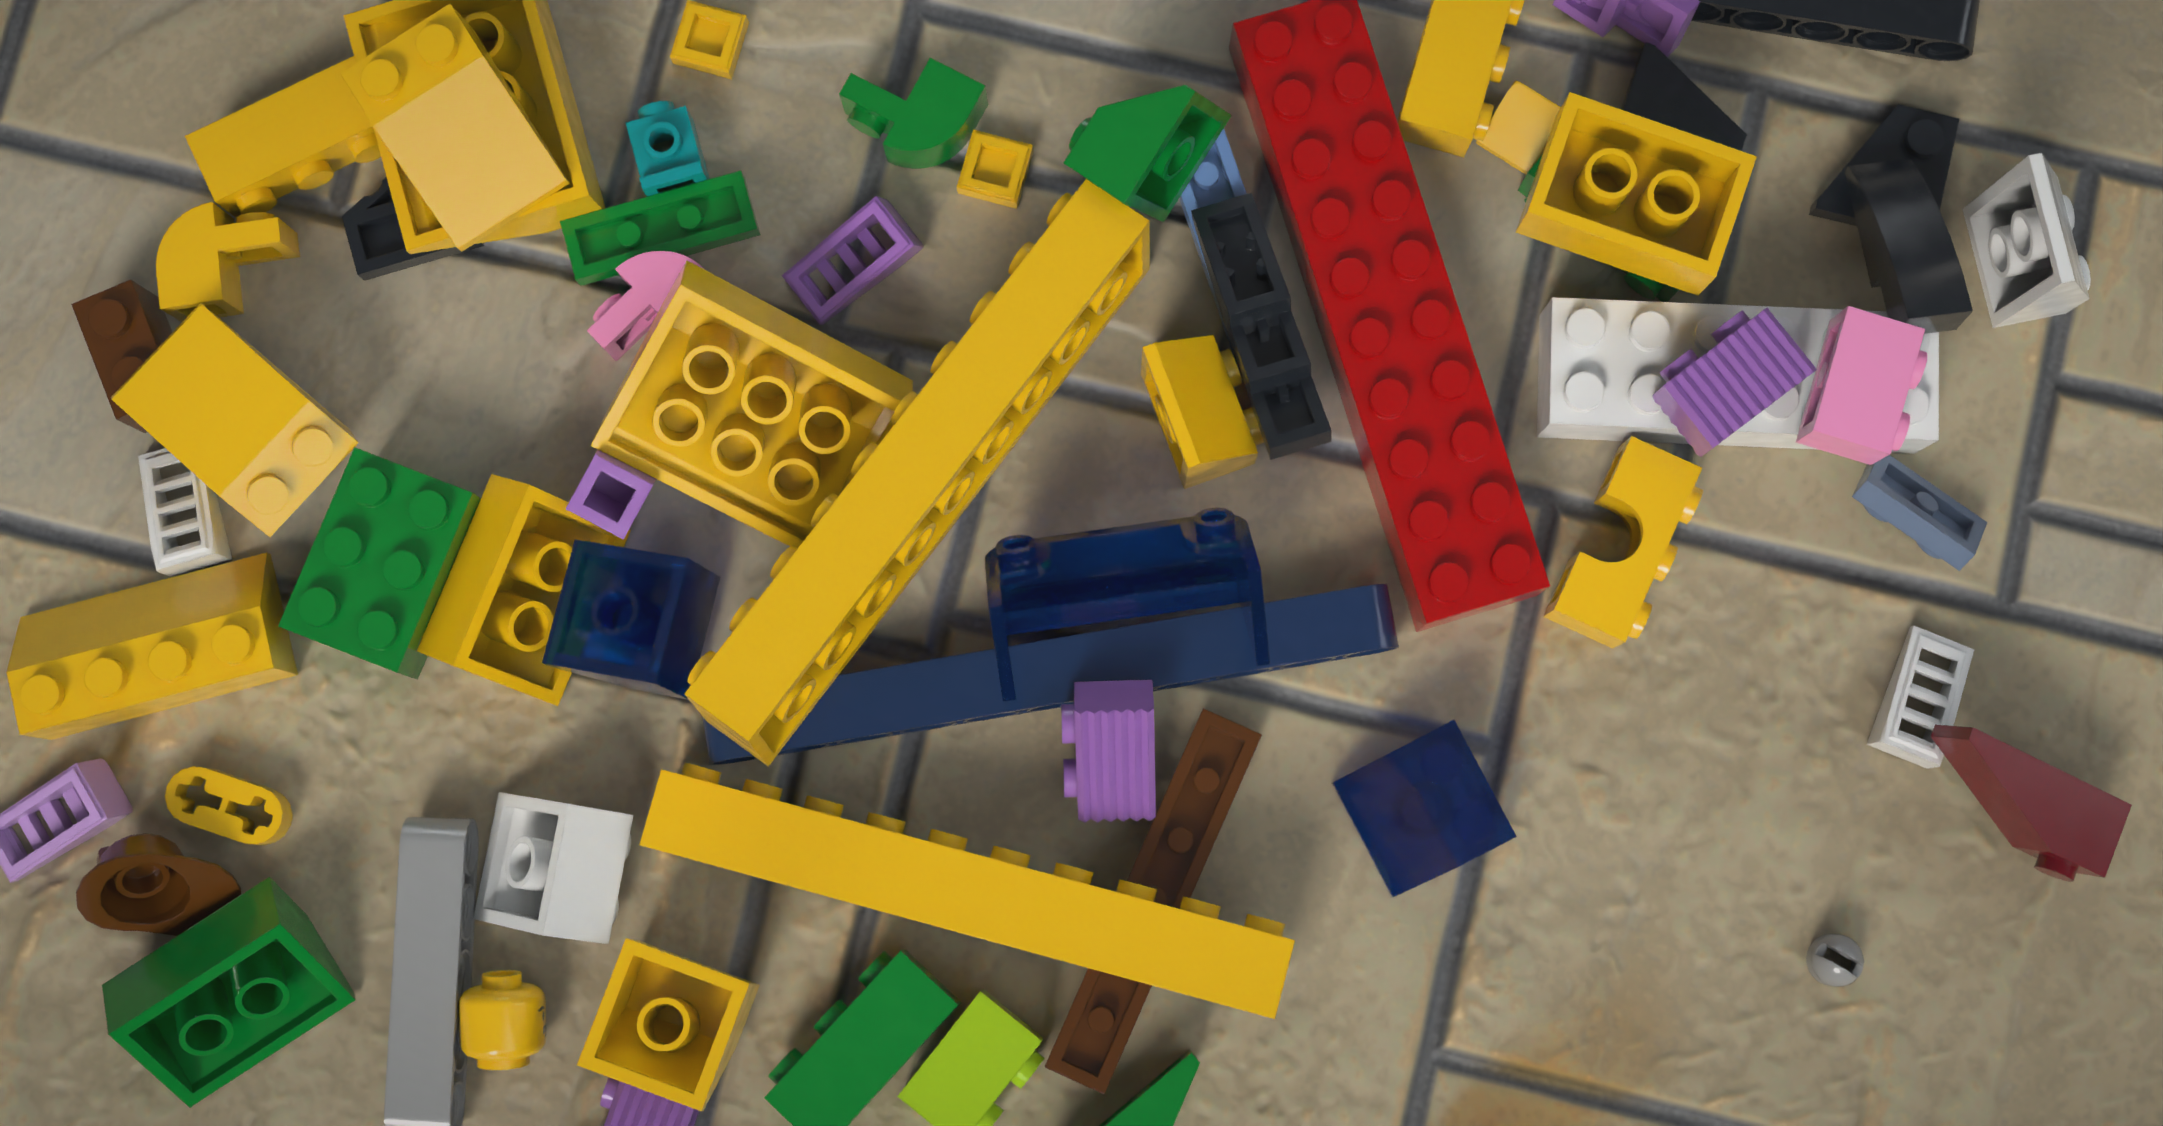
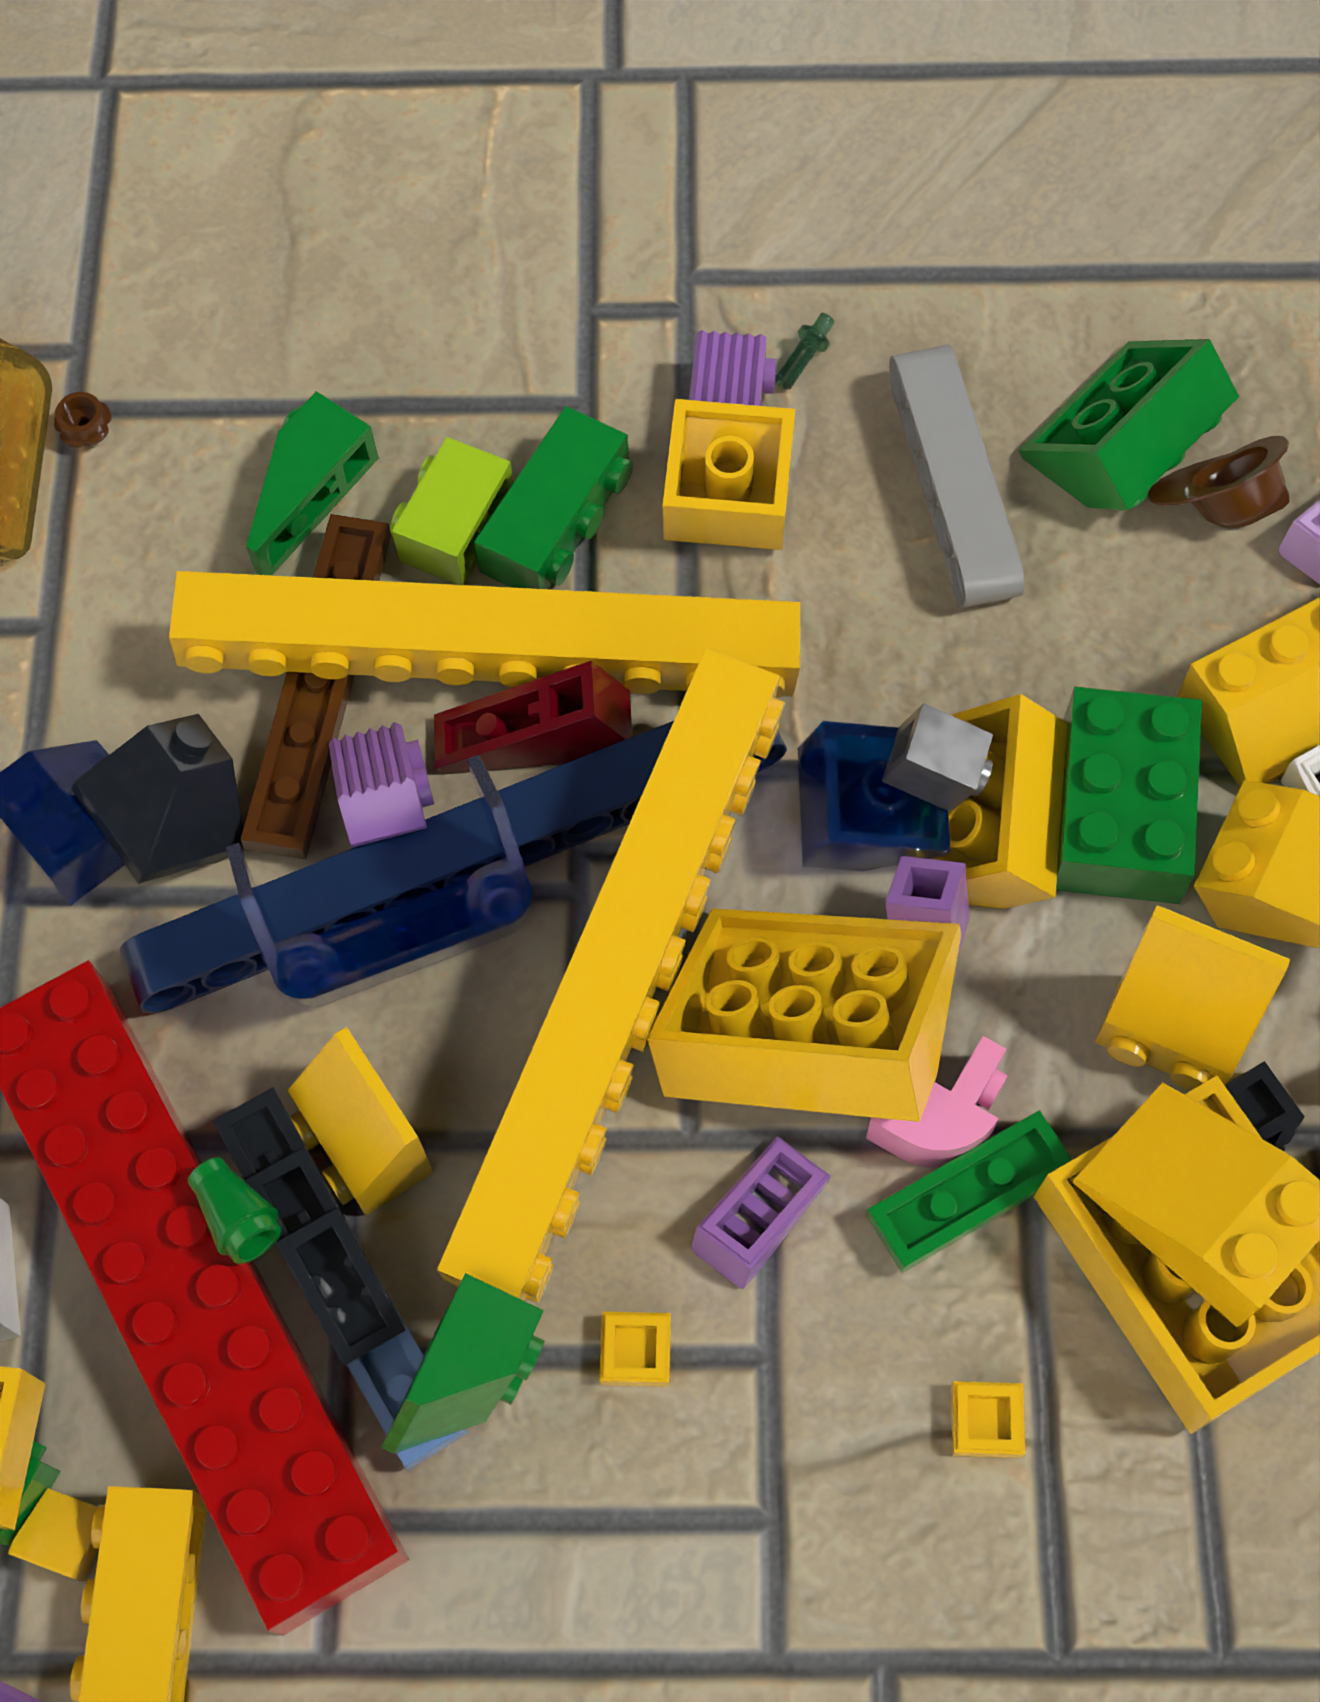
camera: 165 degrees right, 15 degrees down
(223, 819) = (1192, 569): yellow beam -> none
(412, 321) = (1189, 1000): none -> yellow slope
(502, 1021) = (879, 449): yellow head -> none
(554, 868) = (876, 579): white slope -> none
(555, 617) = (939, 758): none -> flat silver brick
(677, 166) = (961, 1262): teal brick -> none
(926, 126) = (717, 1367): green brick -> none
(946, 790) = (536, 722): none -> dark red slope
(1324, 333) = (235, 1213): none -> green cone
(1329, 784) = (165, 799): none -> black slope

